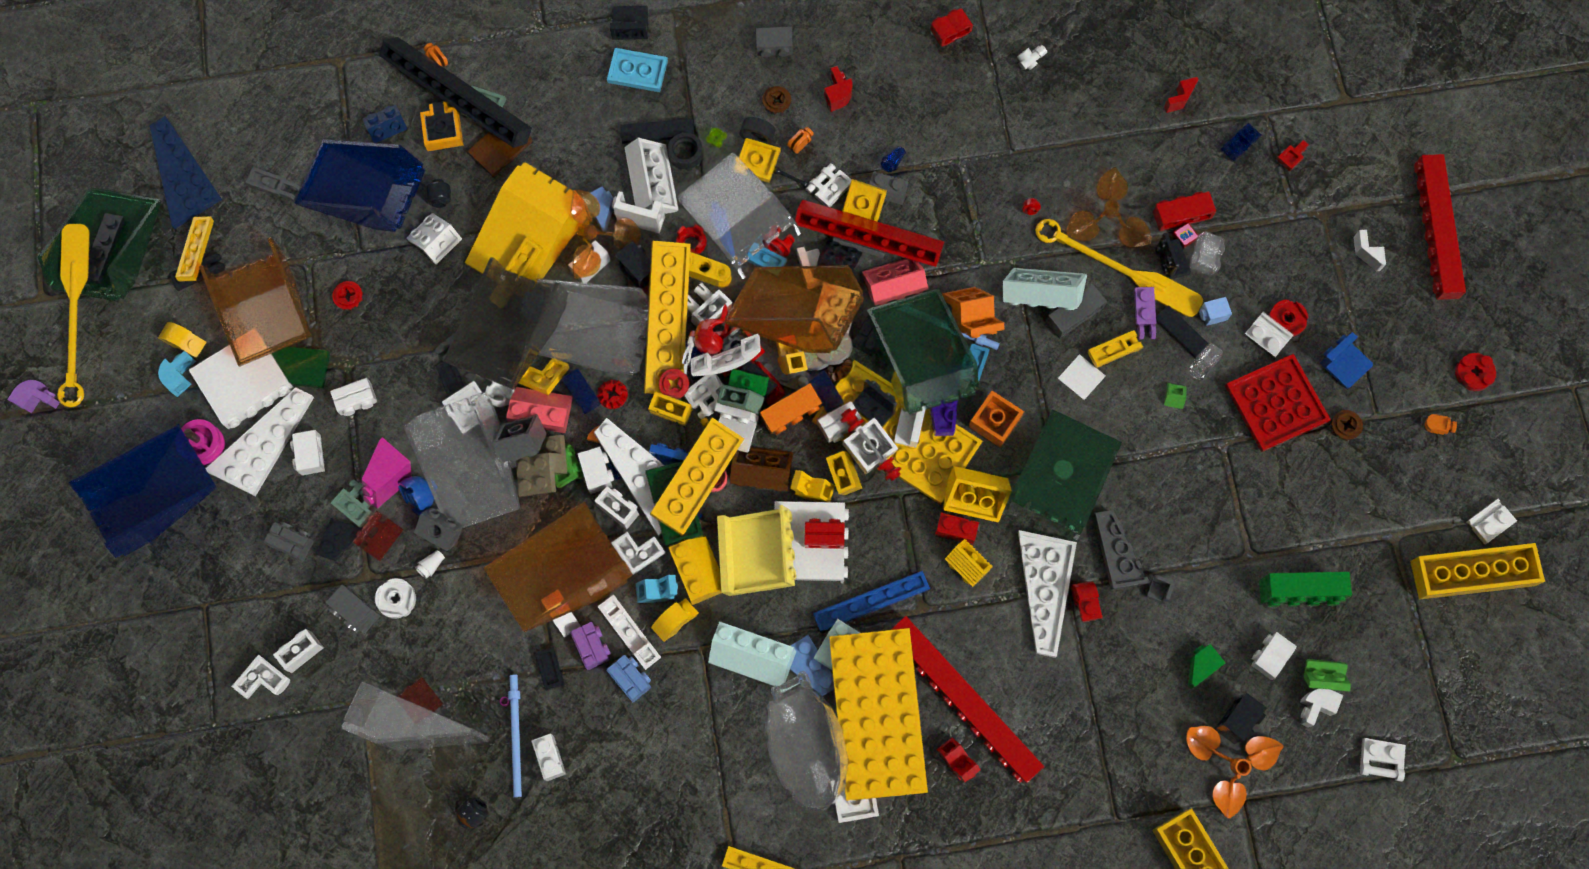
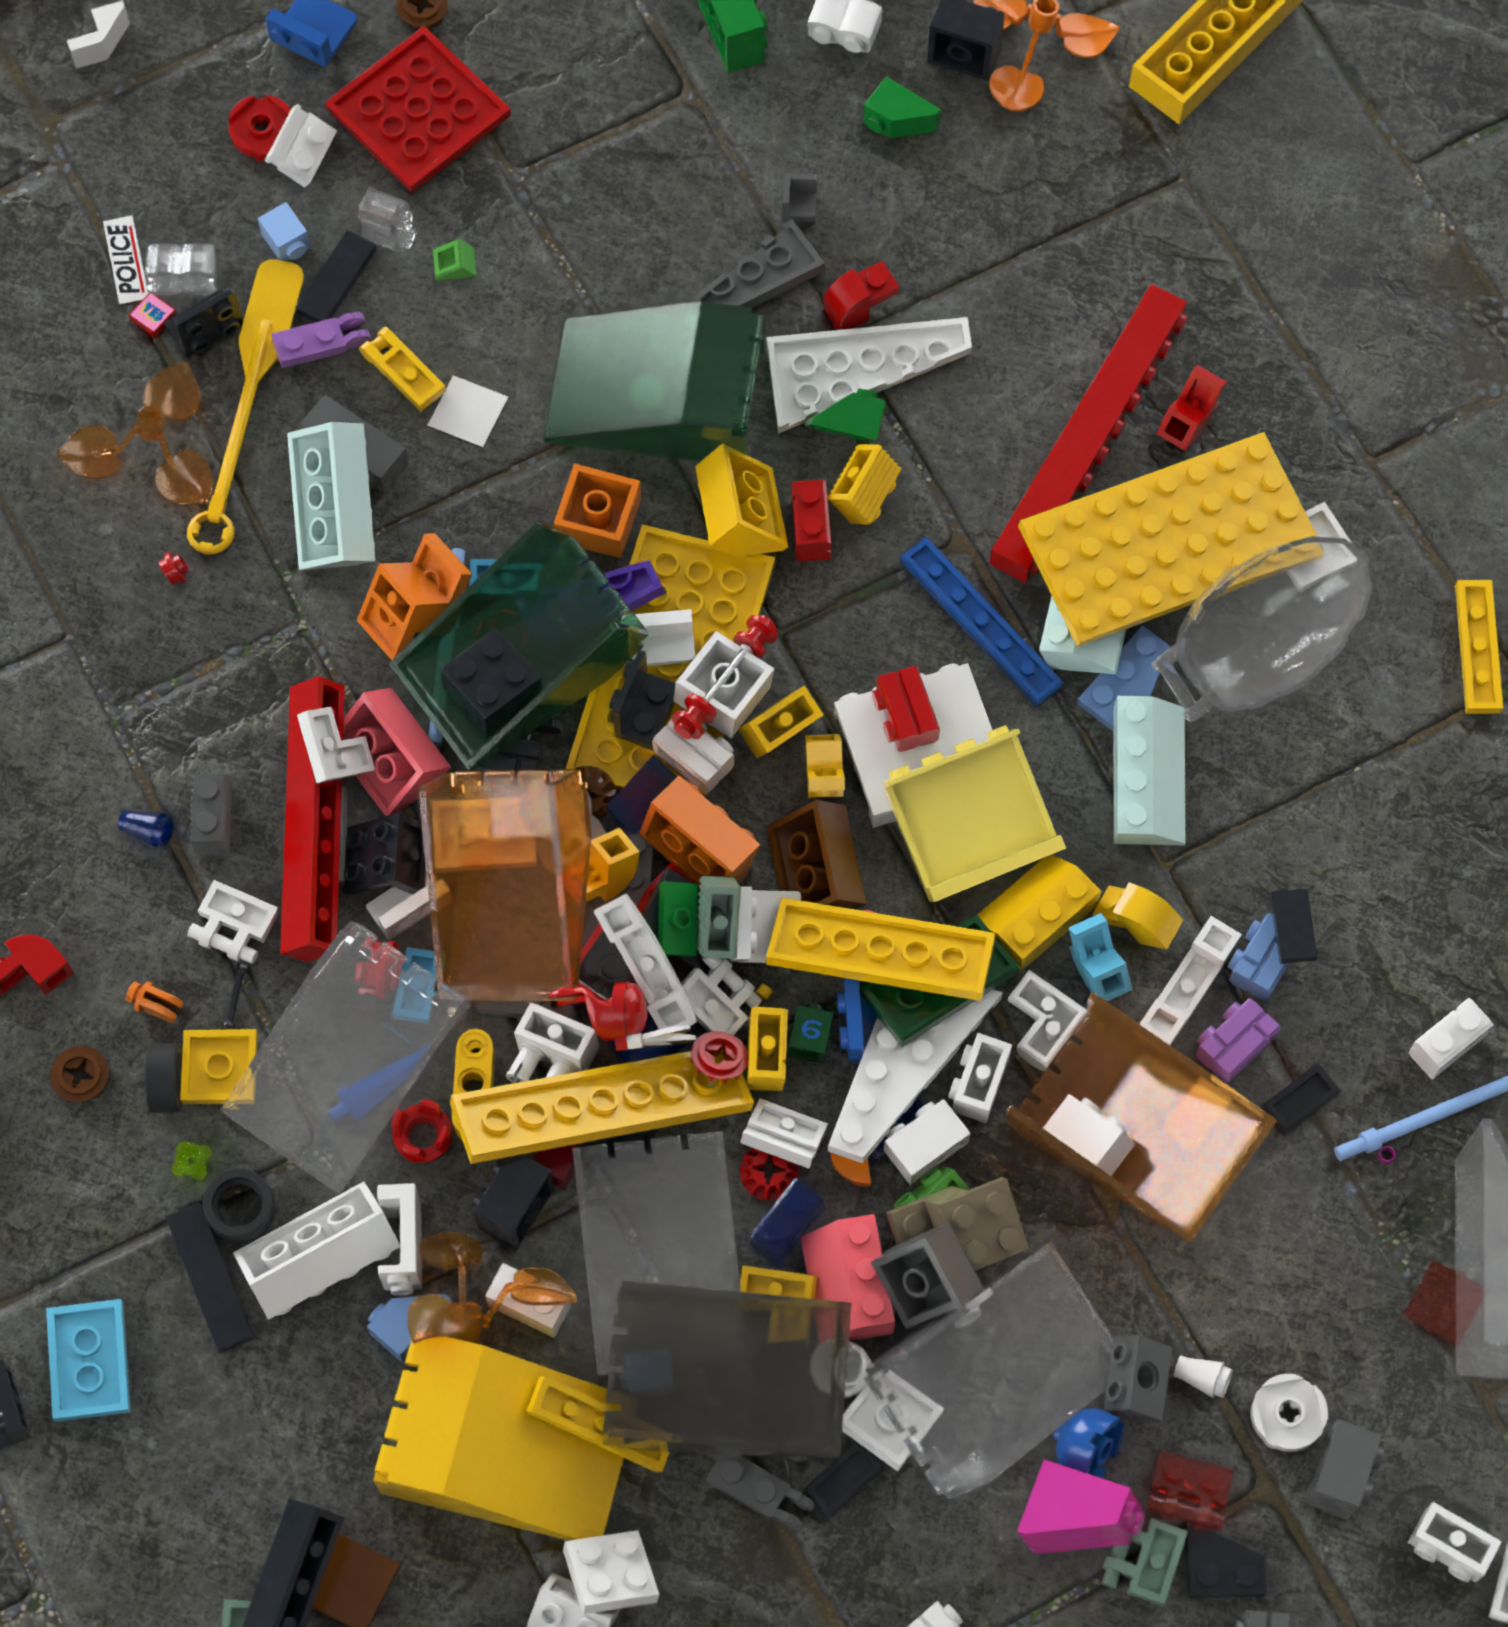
camera: 110 degrees left, 5 degrees down
(447, 259) = (610, 1572): none -> white plate
(563, 546) = (1090, 1134): none -> white brick
(626, 404) = (784, 1133): none -> white plate
(635, 693) = (1293, 926): none -> black tile
(672, 435) = (811, 1033): none -> dark green brick
(864, 200) = (252, 844): yellow plate -> none
(894, 244) = (327, 753): none -> white plate
(907, 329) = (491, 681): none -> black brick
(1011, 568) = (852, 416): none -> green slope
(1184, 210) = (108, 325): red brick -> none
(1227, 232) = (125, 259): none -> white sticker

